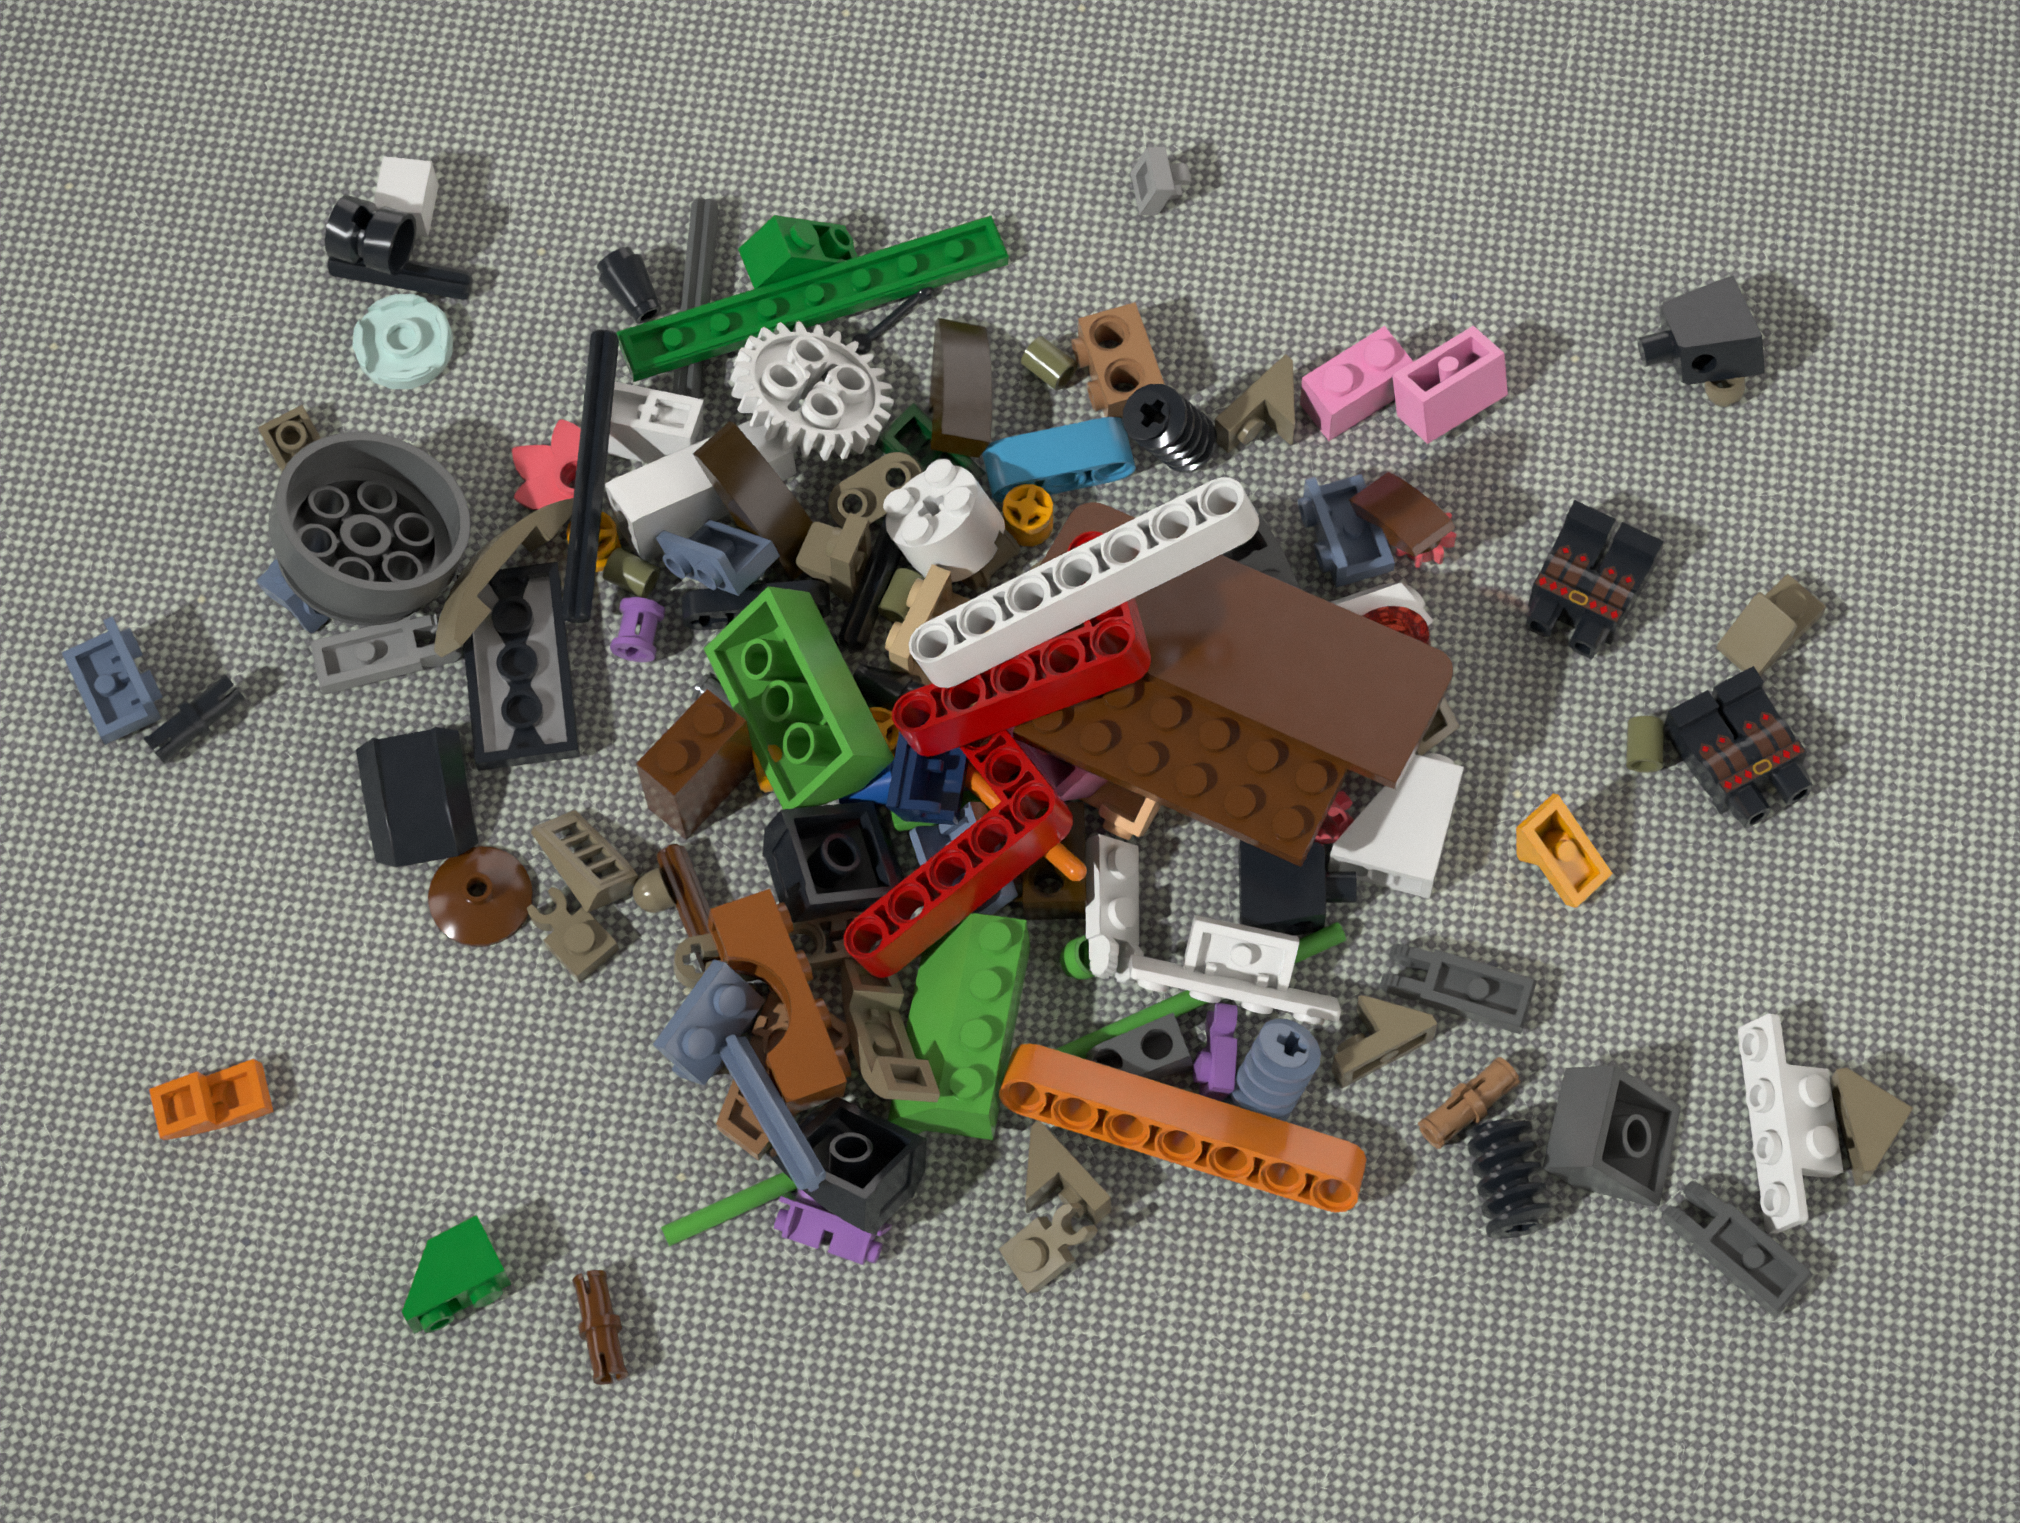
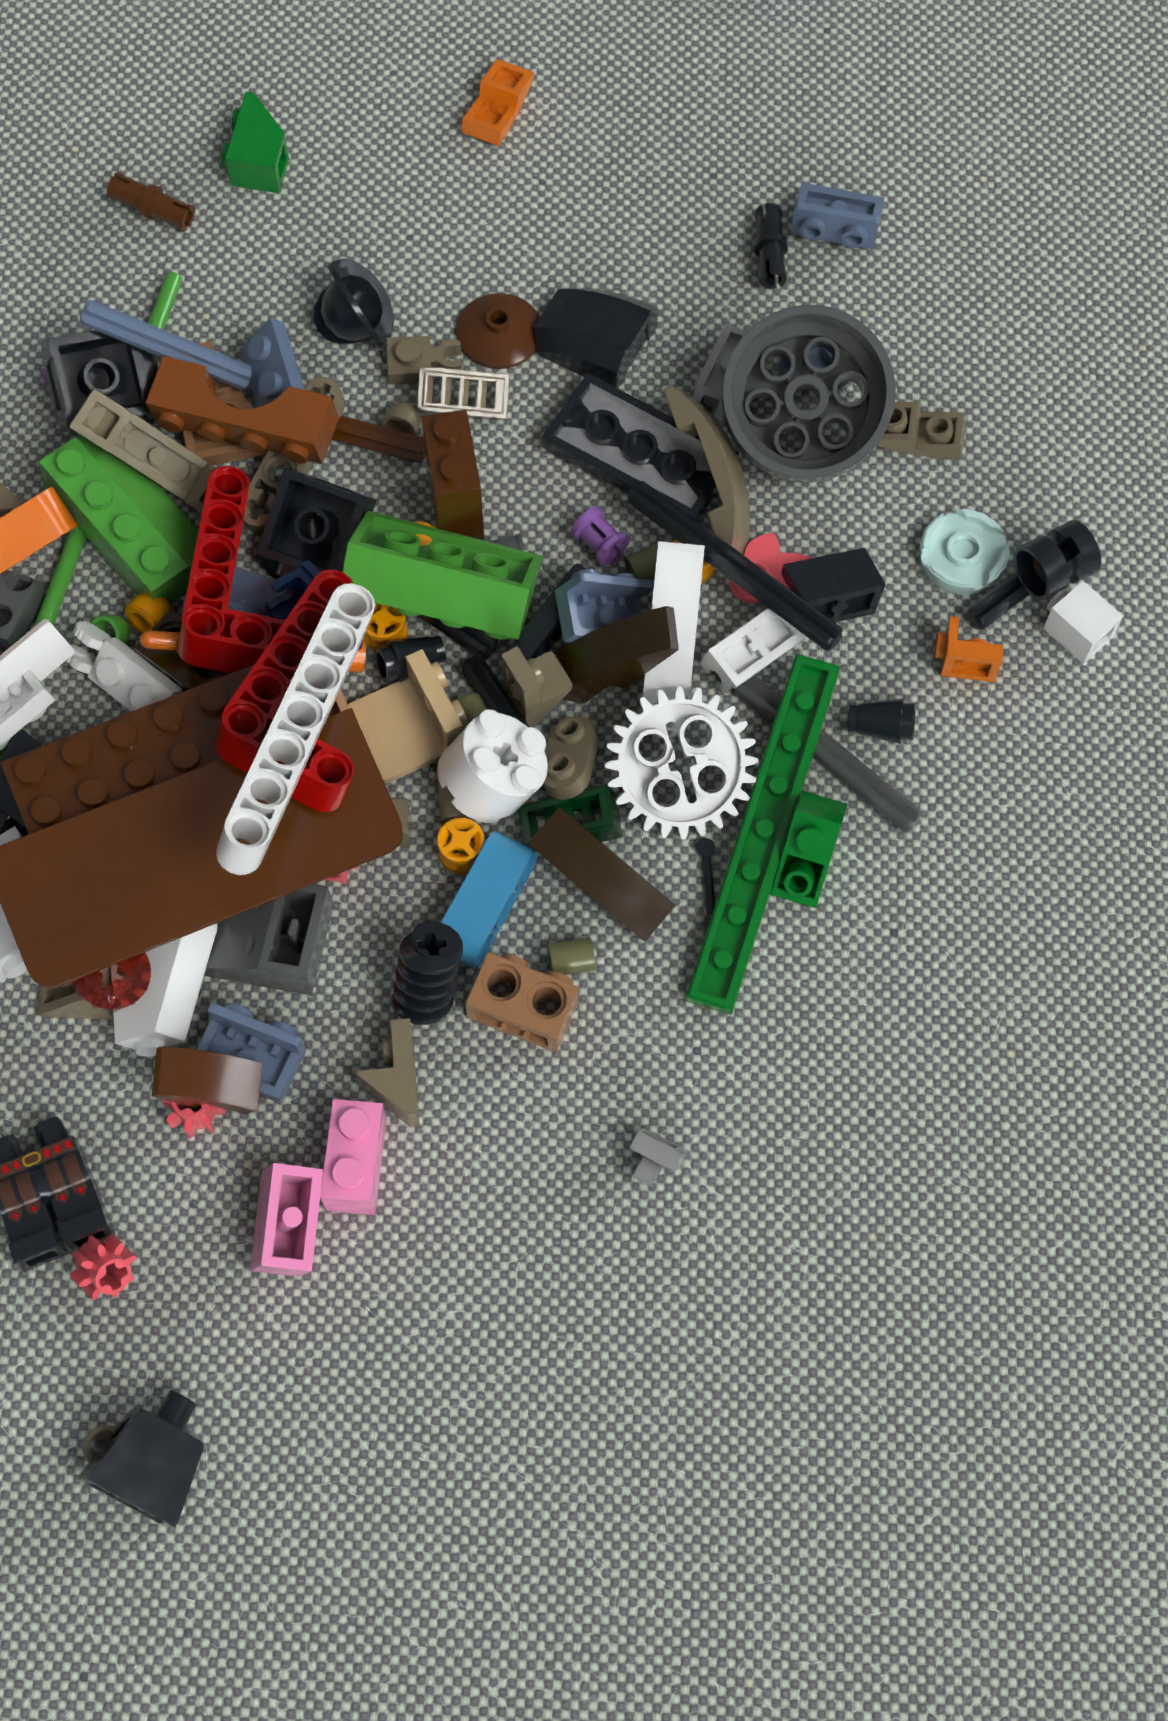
camera: 125 degrees right, 0 degrees up
(517, 266) = (967, 659): none -> orange bracket
(534, 400) = (837, 584): none -> black hinge
(573, 1024) = (353, 306): none -> black helmet
(1041, 938) = (145, 613): none -> light orange piece
(1605, 488) = (102, 1266): none -> coral gear

